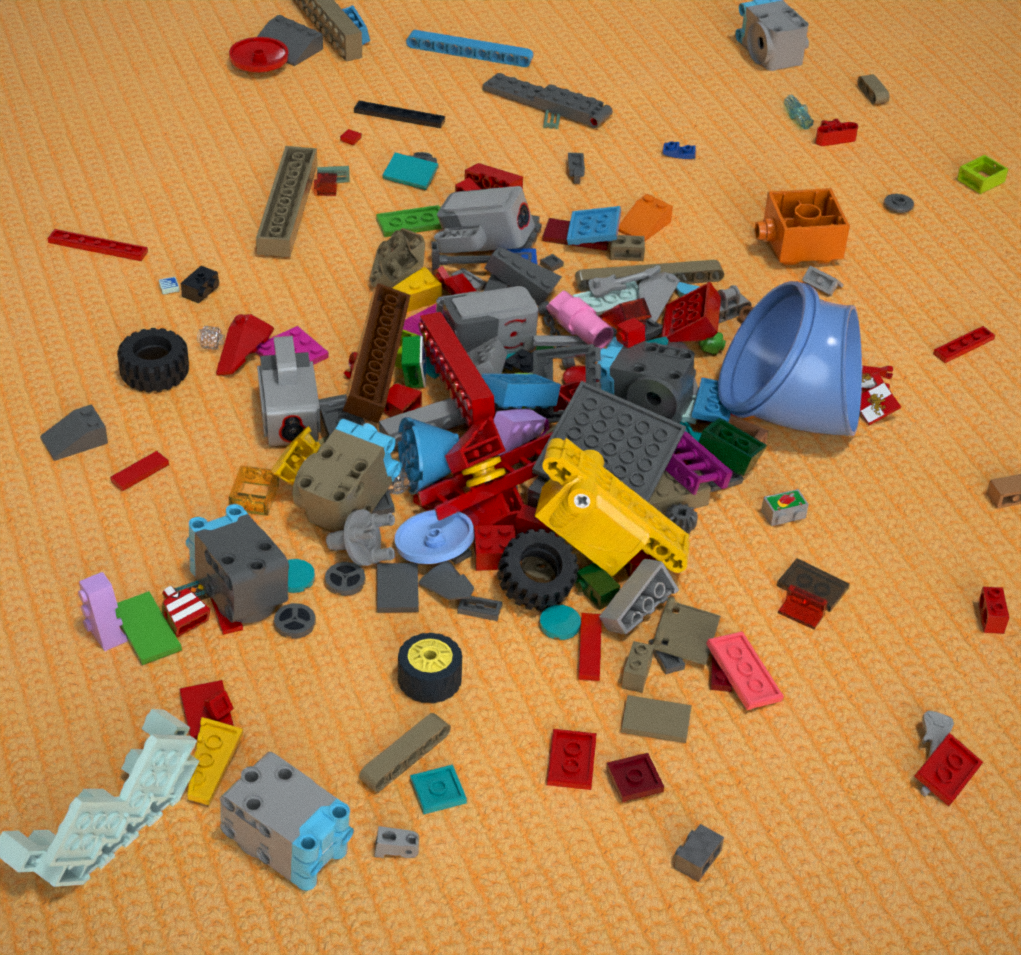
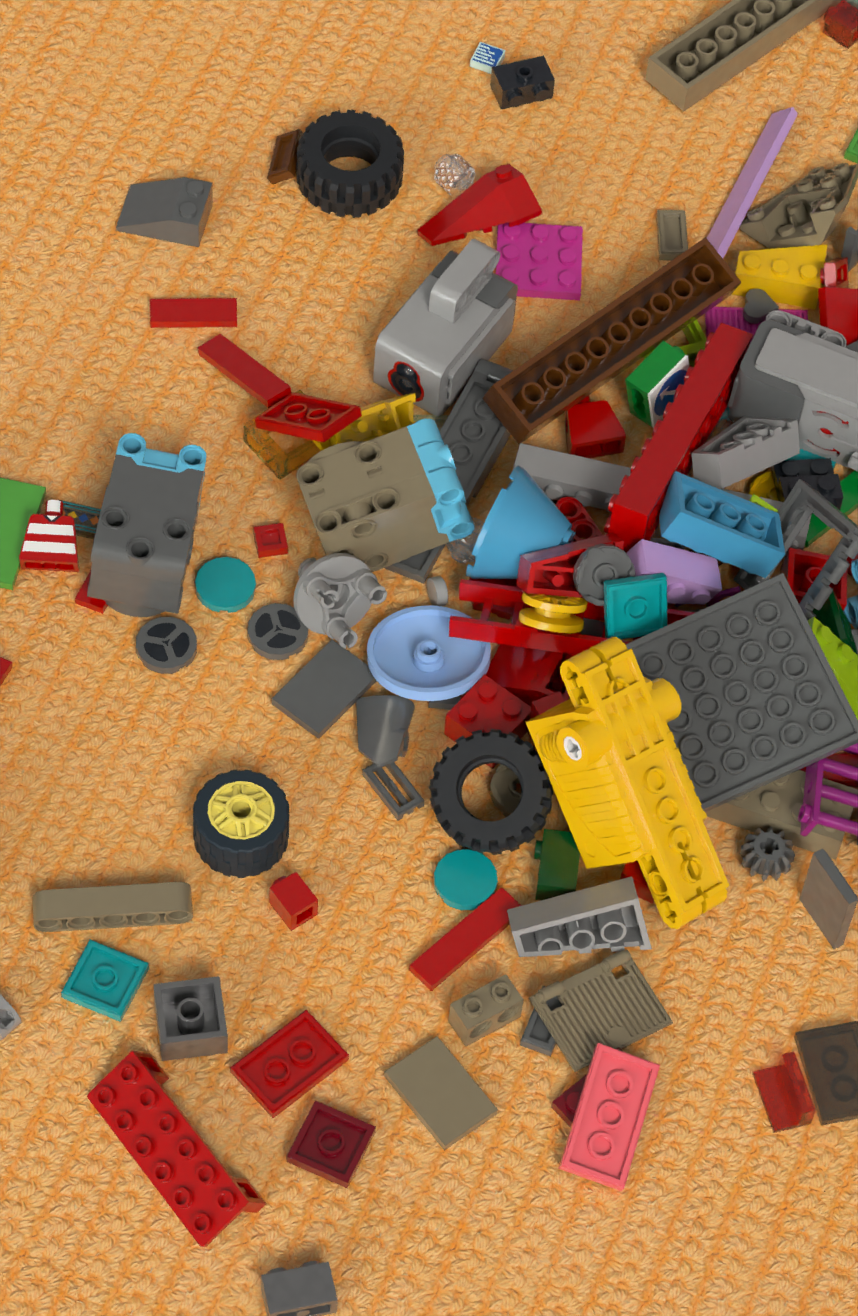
camera: 40 degrees right, 15 degrees up
(113, 377) = (284, 157): none -> reddish brown tile
(199, 476) = (244, 370): none -> red tile
(265, 467) = (308, 417): none -> red tile
(295, 542) = (270, 540): none -> red tile
(342, 307) = (671, 233): none -> dark tan tile
(354, 265) = (751, 179): none -> lavender tile
(404, 510) = (437, 591): none -> light grey tile
(416, 310) = (758, 306): none -> dark grey tile
(491, 685) = (293, 900): none -> red brick
(494, 438) = (598, 565): none -> dark grey tile
(506, 770) = (190, 1018): none -> flat silver brick
(520, 445) = (635, 605): none -> teal tile
(562, 837) = (171, 1148): none -> red bracket
(735, 511) = (828, 898): none -> dark grey tile

